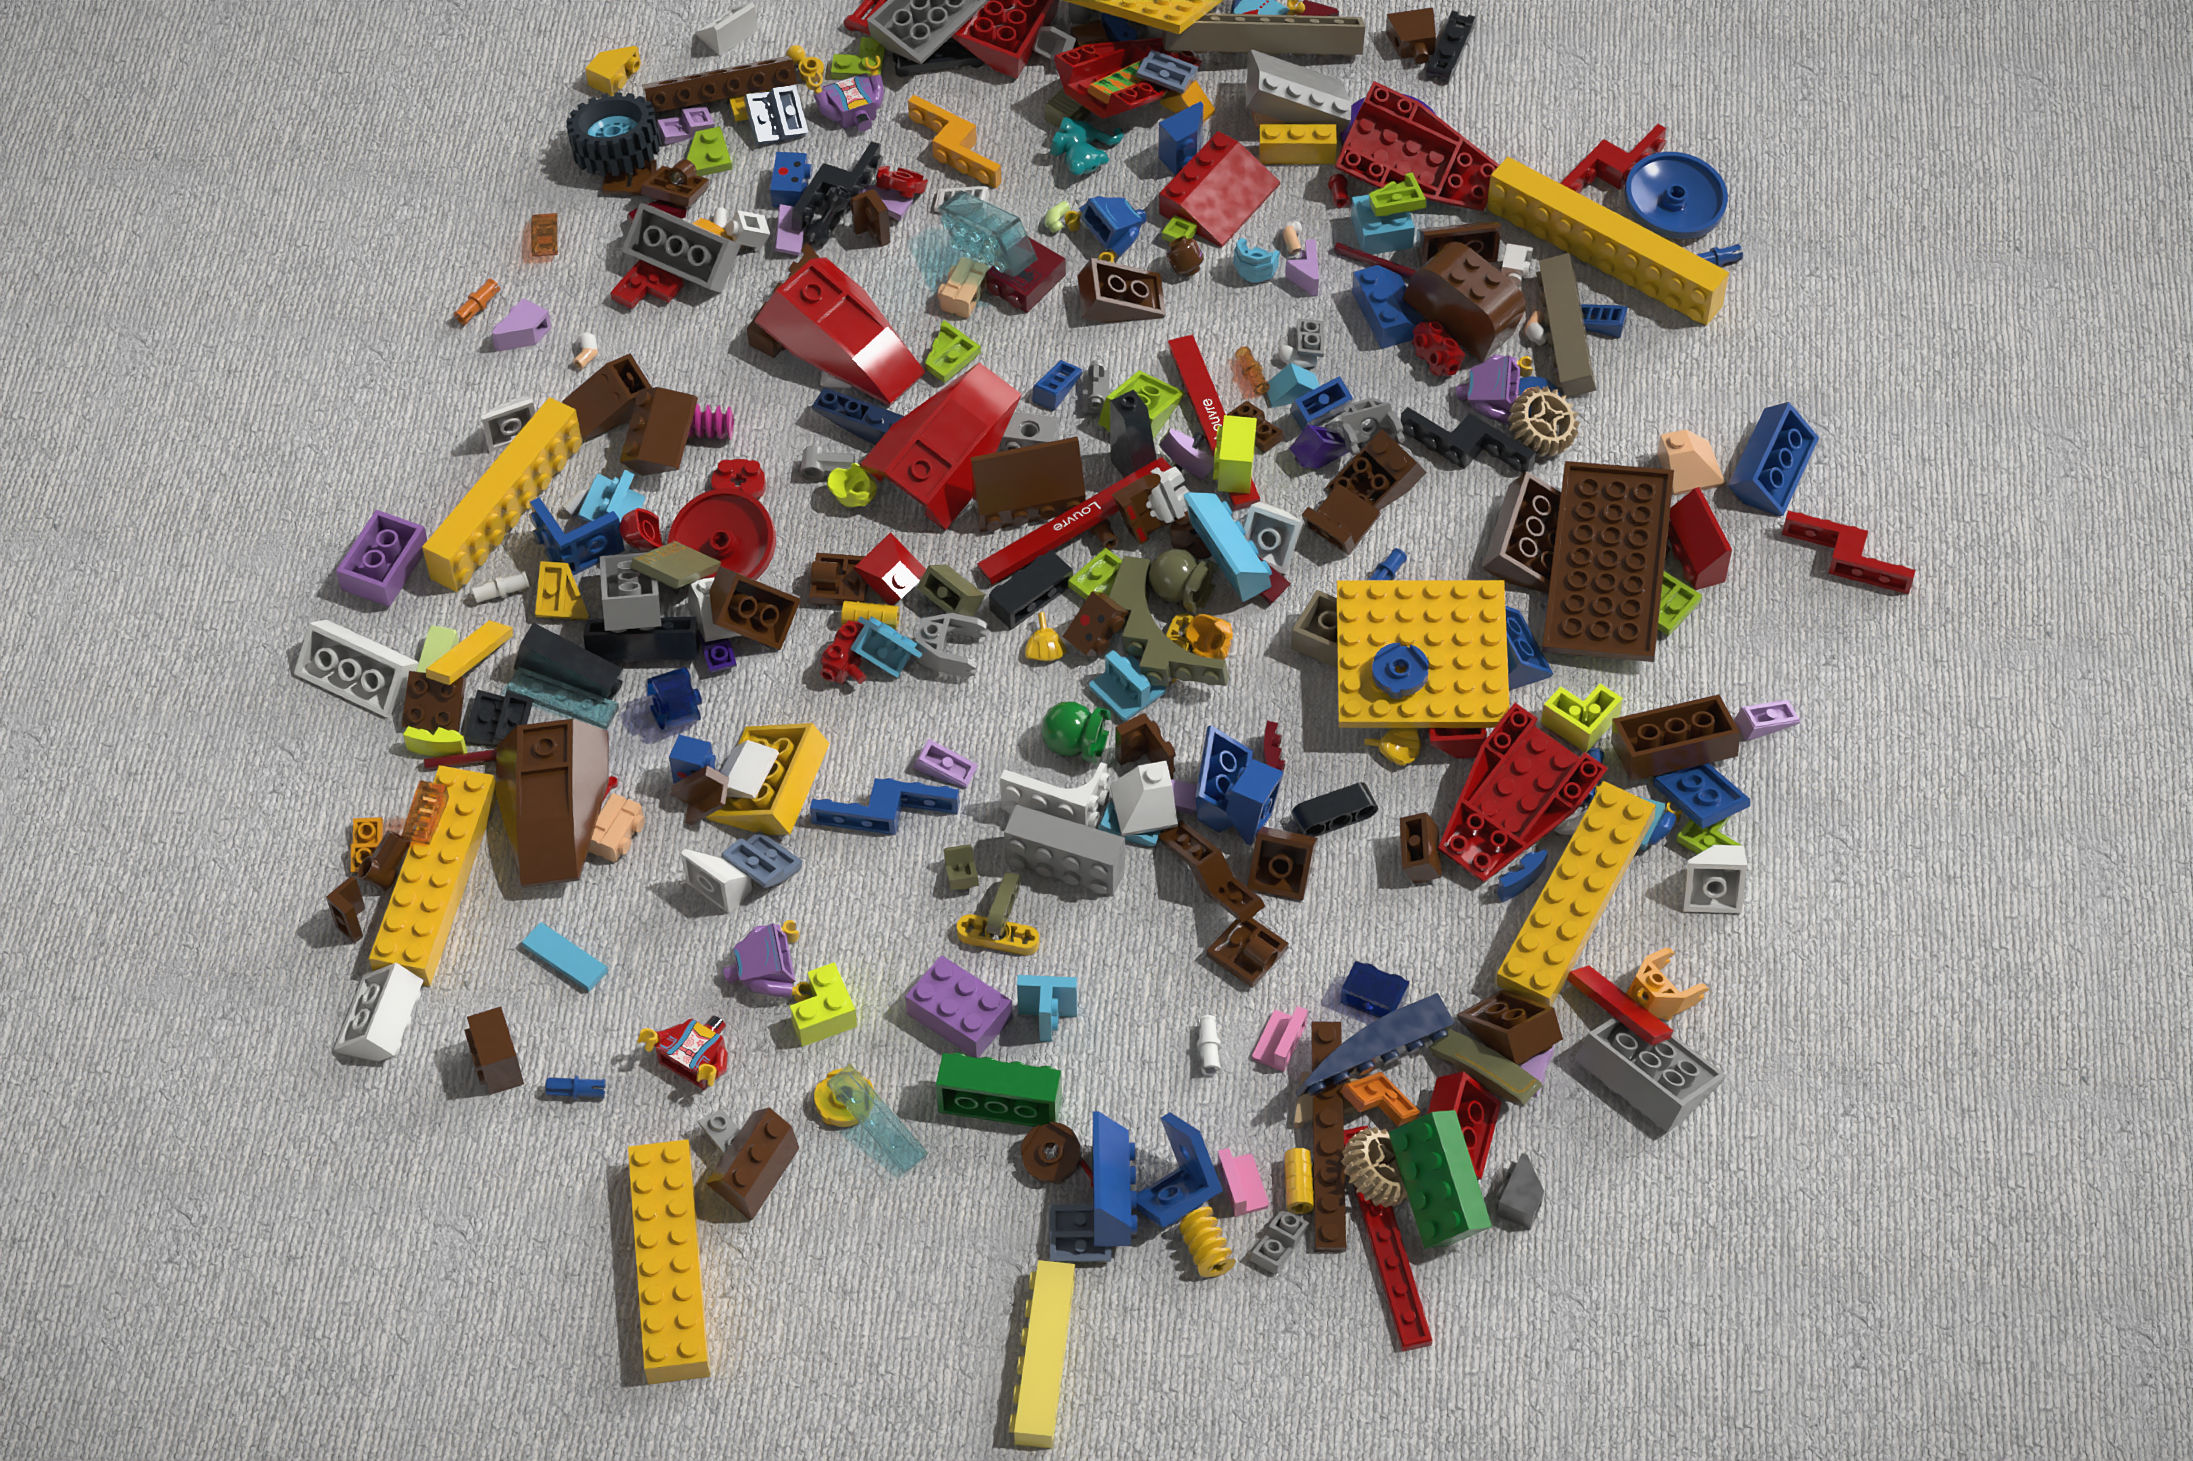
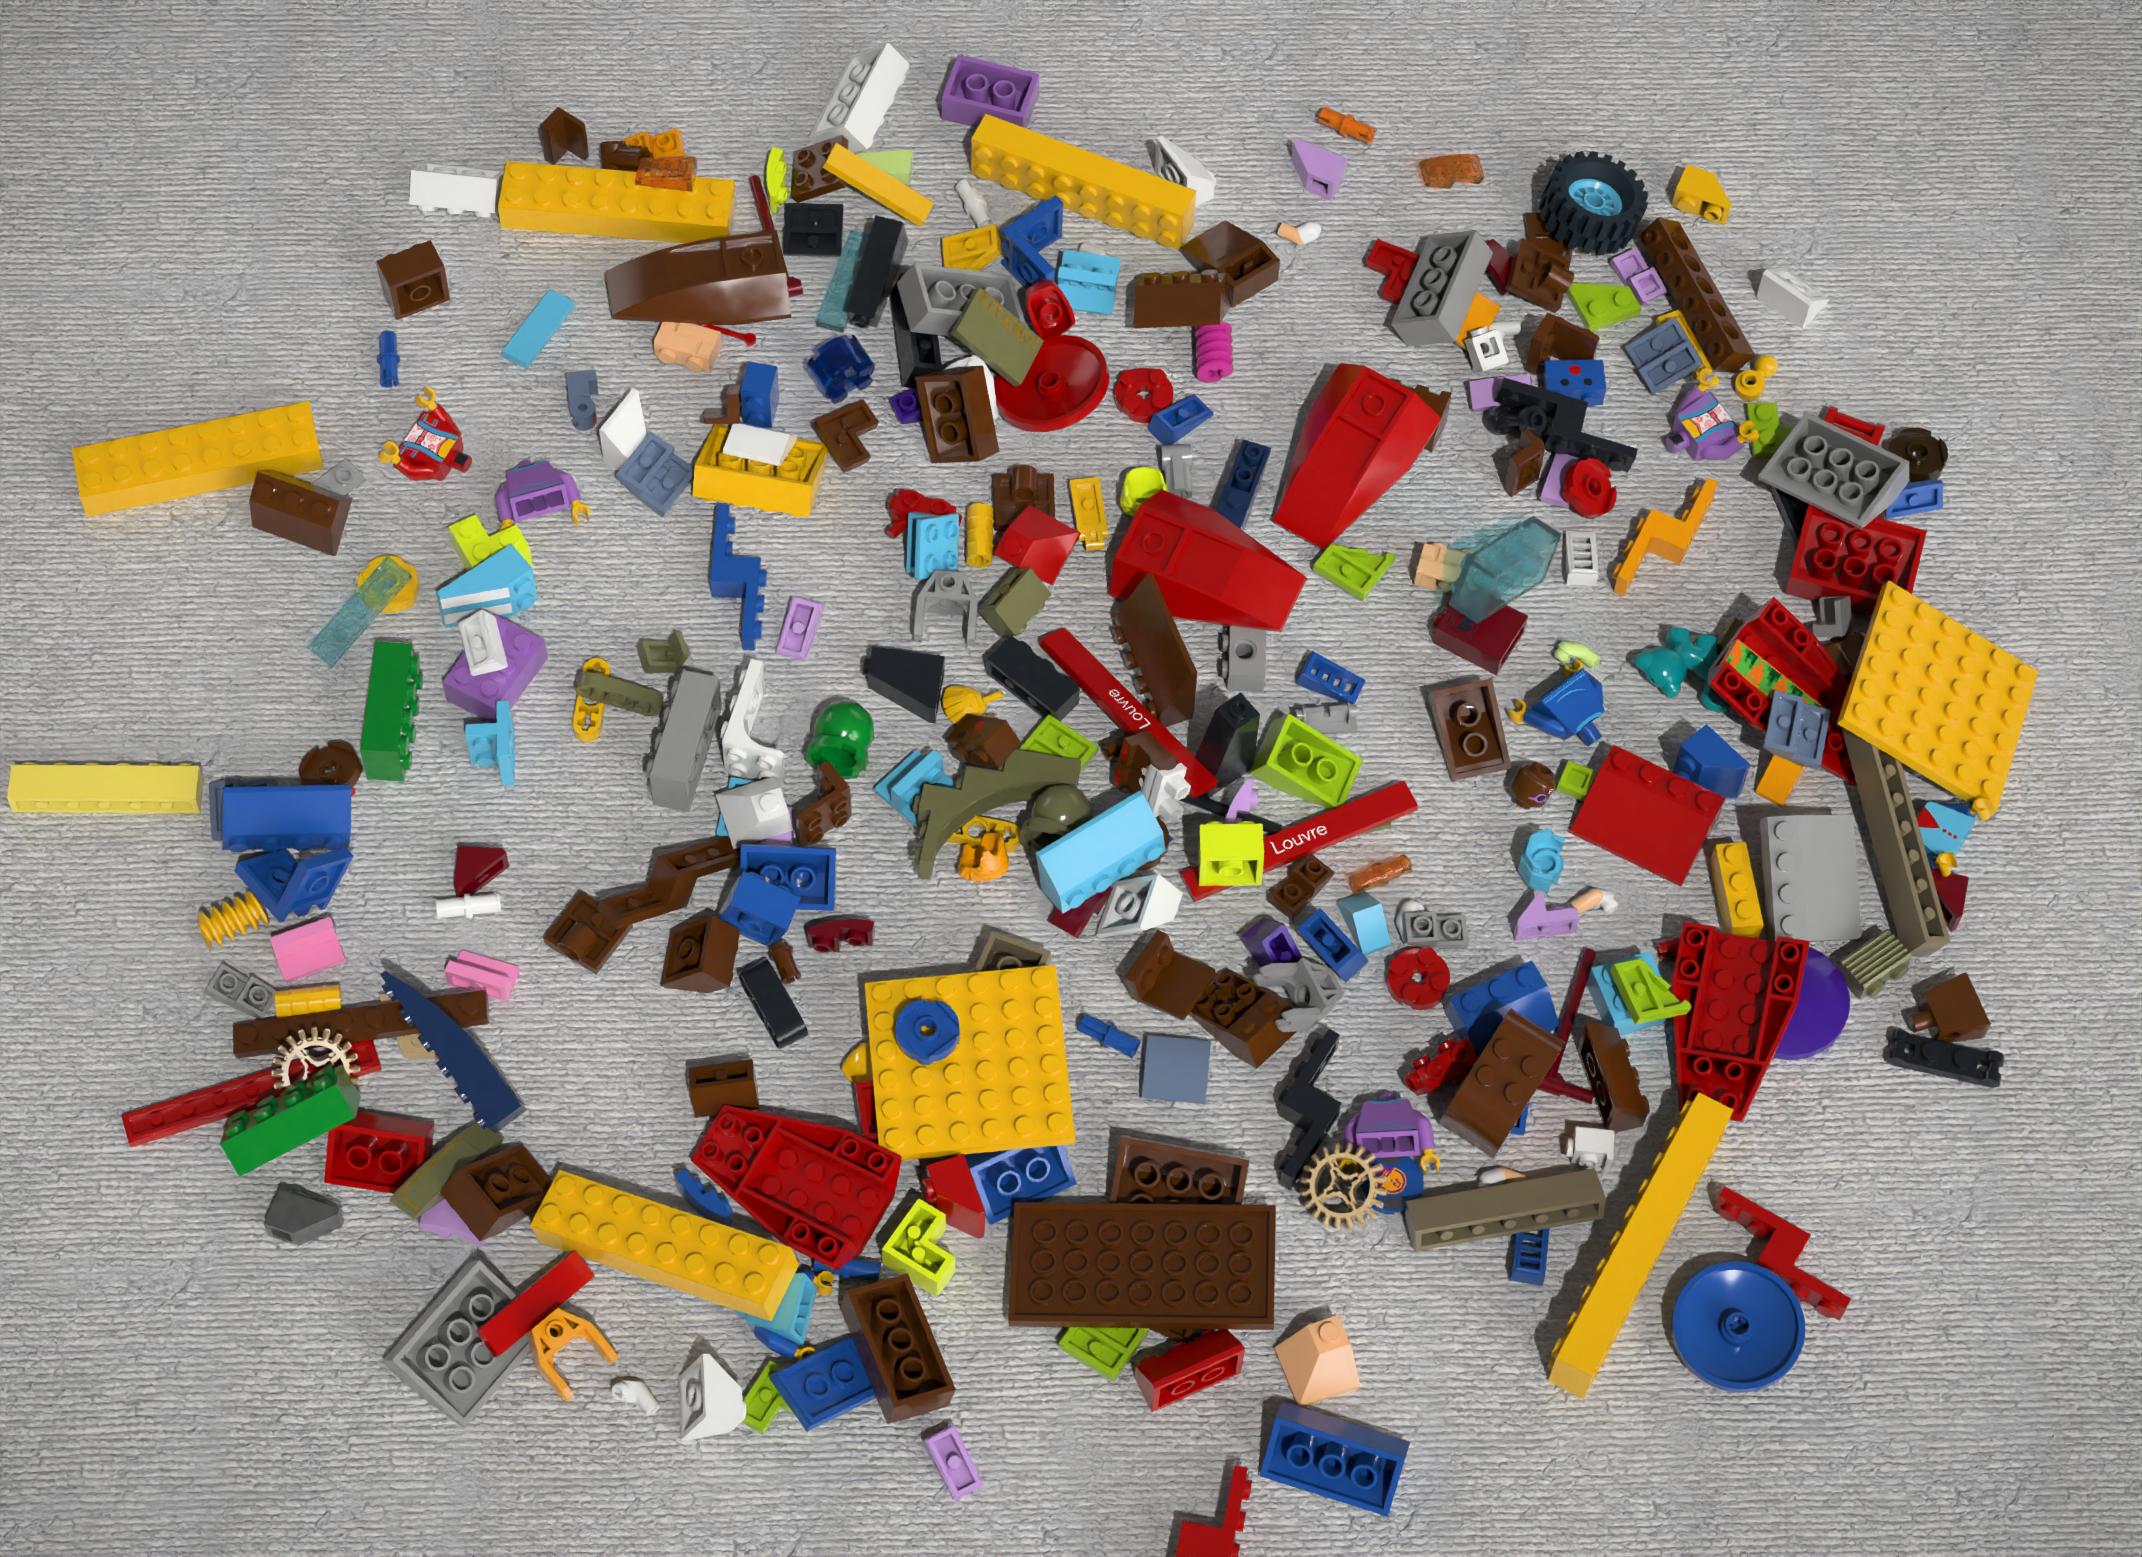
camera: 80 degrees right, 5 degrees up
(660, 921) = (582, 407): none -> sand blue leg
(742, 712) = (841, 433): none -> reddish brown plate
(752, 178) = (1561, 340): none -> reddish brown bracket
(773, 461) = (1178, 420): none -> blue slope
(858, 532) = (1089, 512): none -> yellow hinge
(869, 990) = (497, 585): none -> medium azure slope
(944, 1001) = (482, 643): none -> white slope
(1018, 681) = (907, 679): none -> black slope
(1173, 1037) = (477, 868): none -> dark red slope
(1290, 799) = (784, 961): none -> reddish brown pin
(1354, 347) = (1426, 963): none -> red plate
(1364, 67) = (1875, 964): none -> olive brick
(1374, 990) = (541, 1059): clear blue brick -> none
(1381, 1092) = (416, 1074): orange tile -> none
(1421, 528) = (1176, 1069): none -> sand blue slope
(1537, 679) = (954, 1193): none -> red slope
(1699, 941) = (635, 1393): none -> white arm
(1722, 255) = (1653, 1384): blue pin -> none

